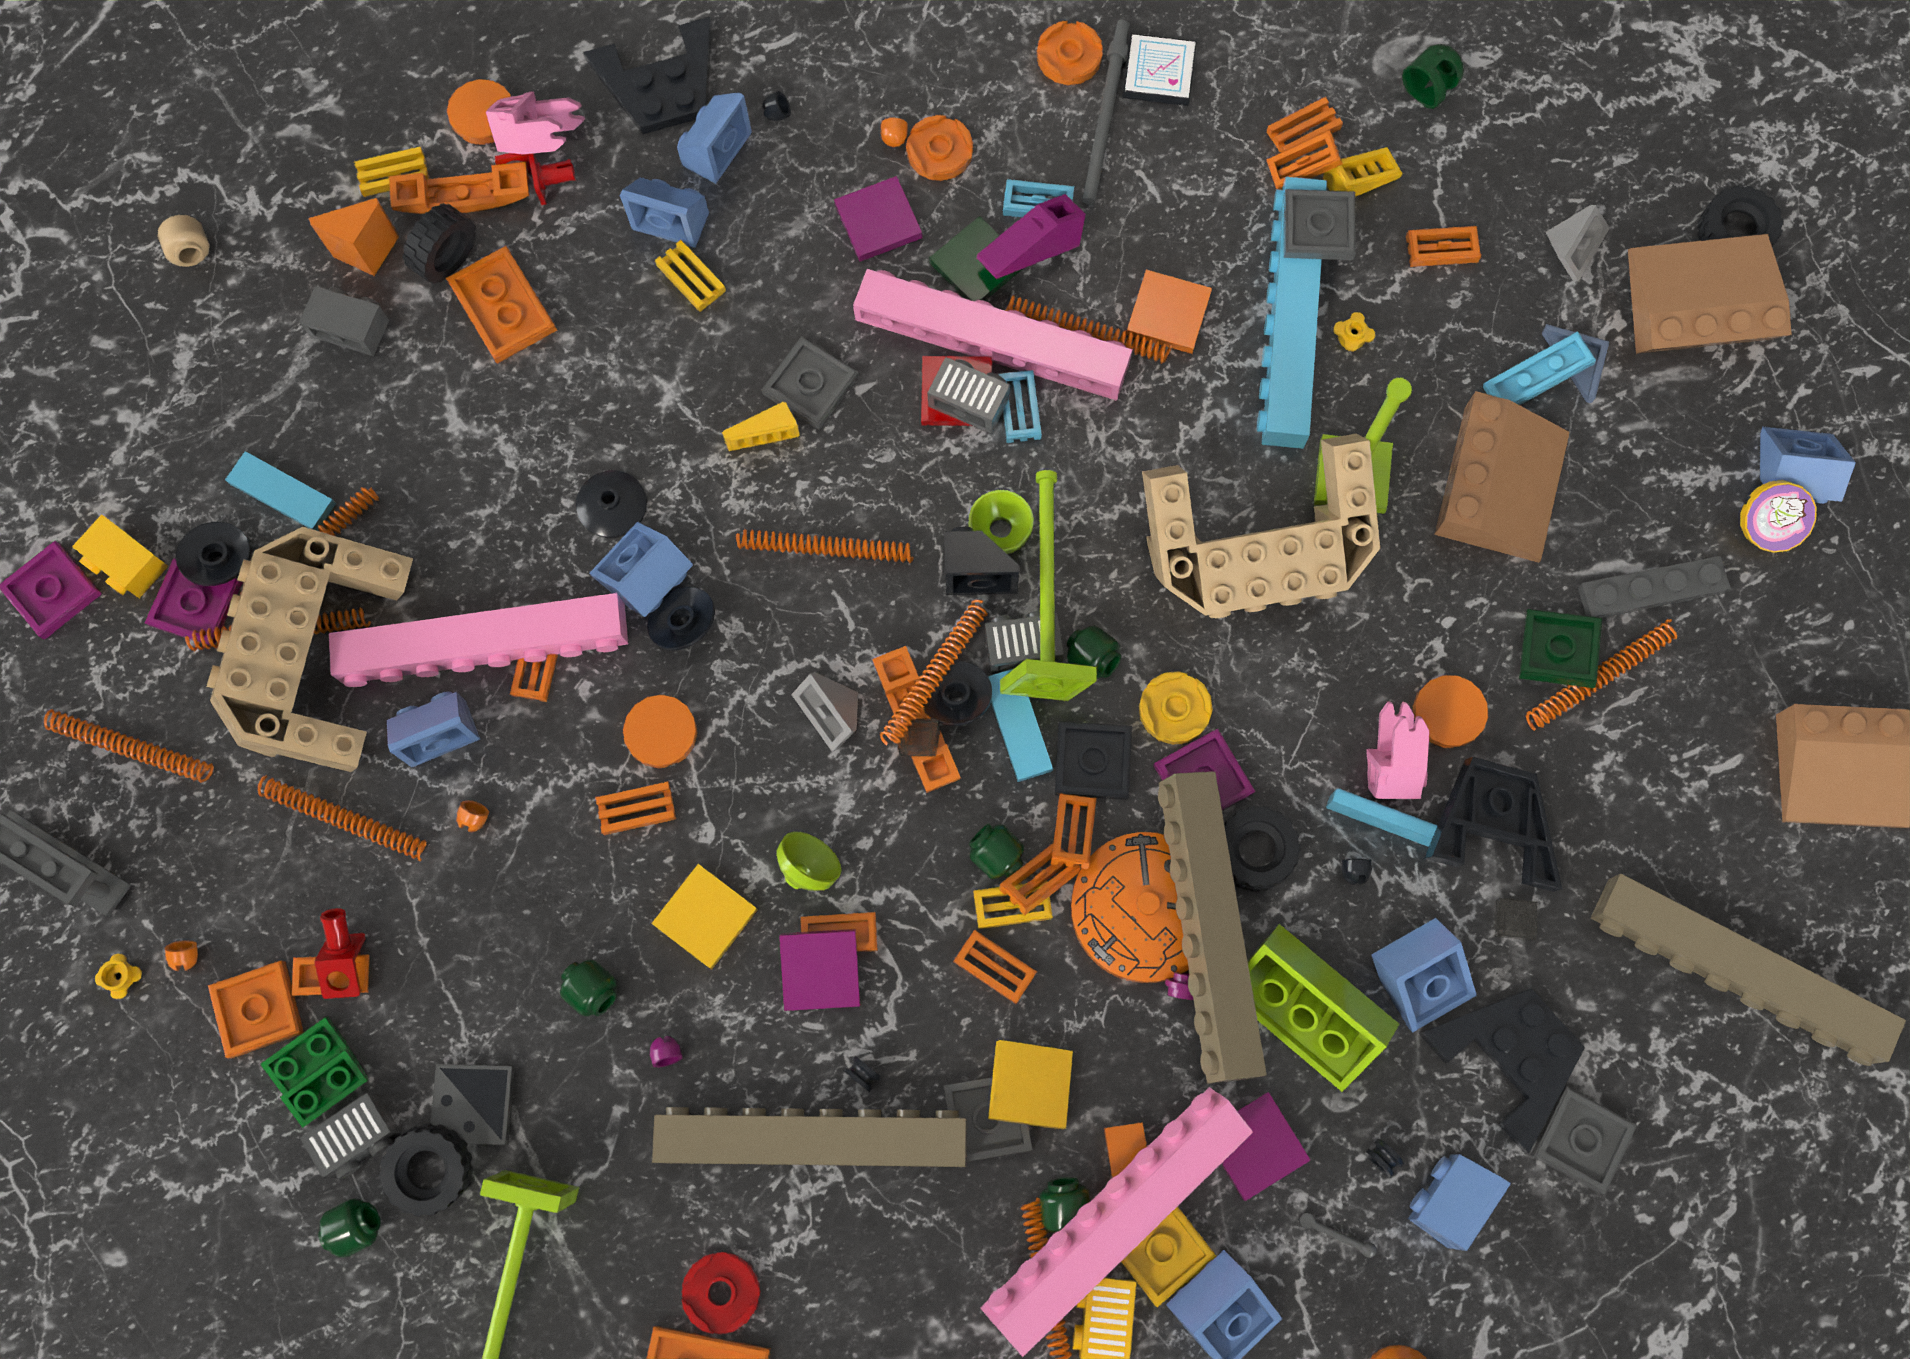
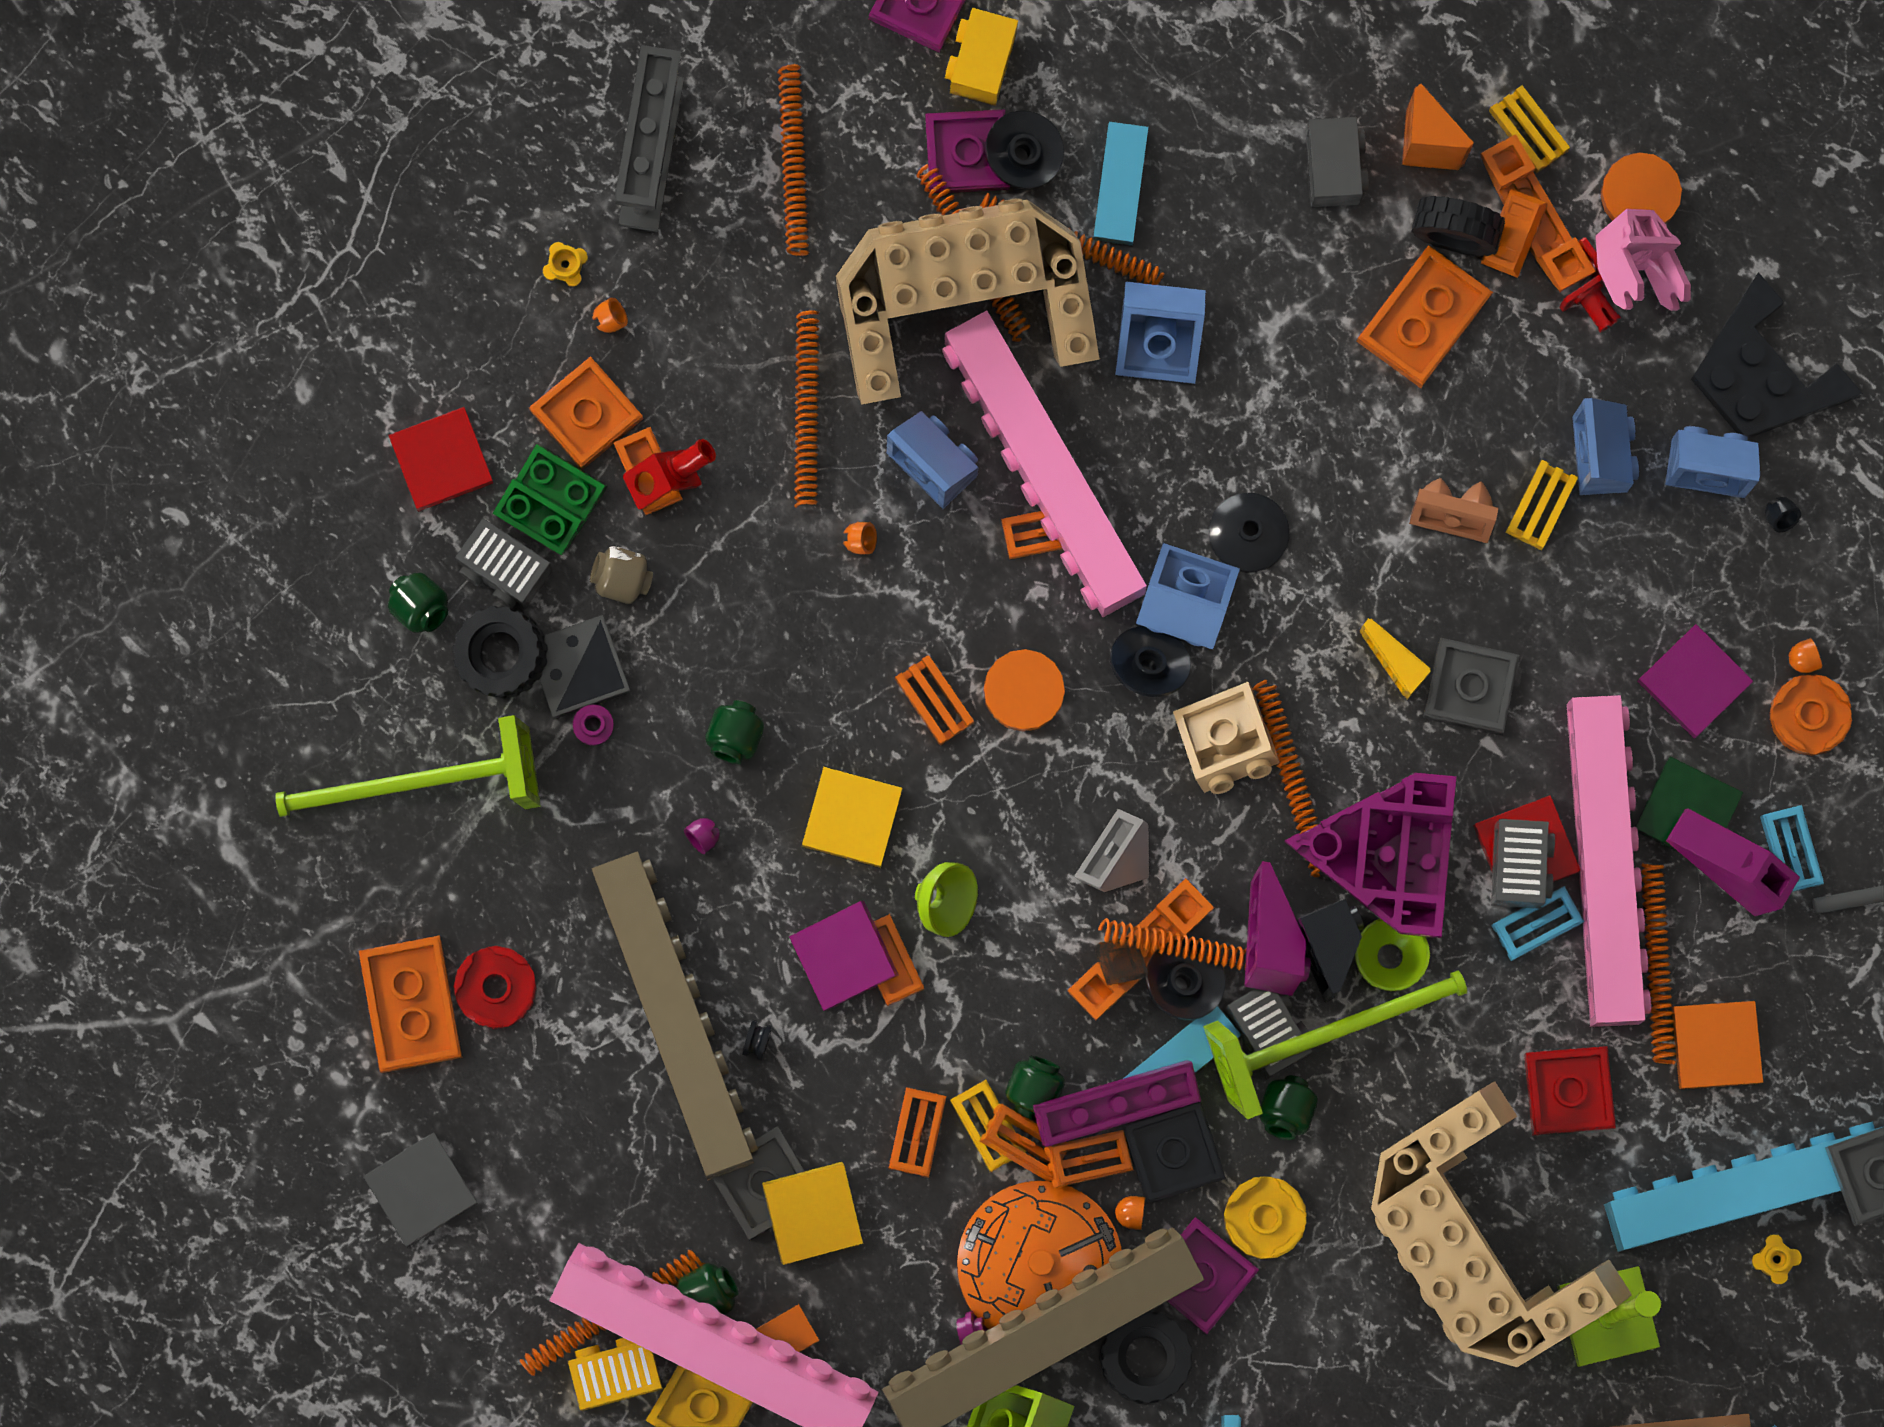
camera: 60 degrees right, 5 degrees up
(233, 1156) = (440, 459): none -> red tile
(408, 1034) = (620, 575): none -> dark tan head
(416, 505) = (1160, 332): none -> medium blue slope
(462, 199) = (1522, 220): none -> orange tile
(539, 1115) = (596, 737): none -> magenta plate
(671, 336) = (1464, 517): none -> nougat tile
(771, 582) = (1226, 739): none -> tan plate
(918, 488) = (1391, 851): none -> magenta wedge
(950, 605) = (1274, 938): none -> magenta slope
(1037, 788) = (1117, 1103): none -> magenta tile
(1131, 813) = (1130, 1212): none -> orange hinge
(1162, 432) = (1569, 1091): none -> red tile

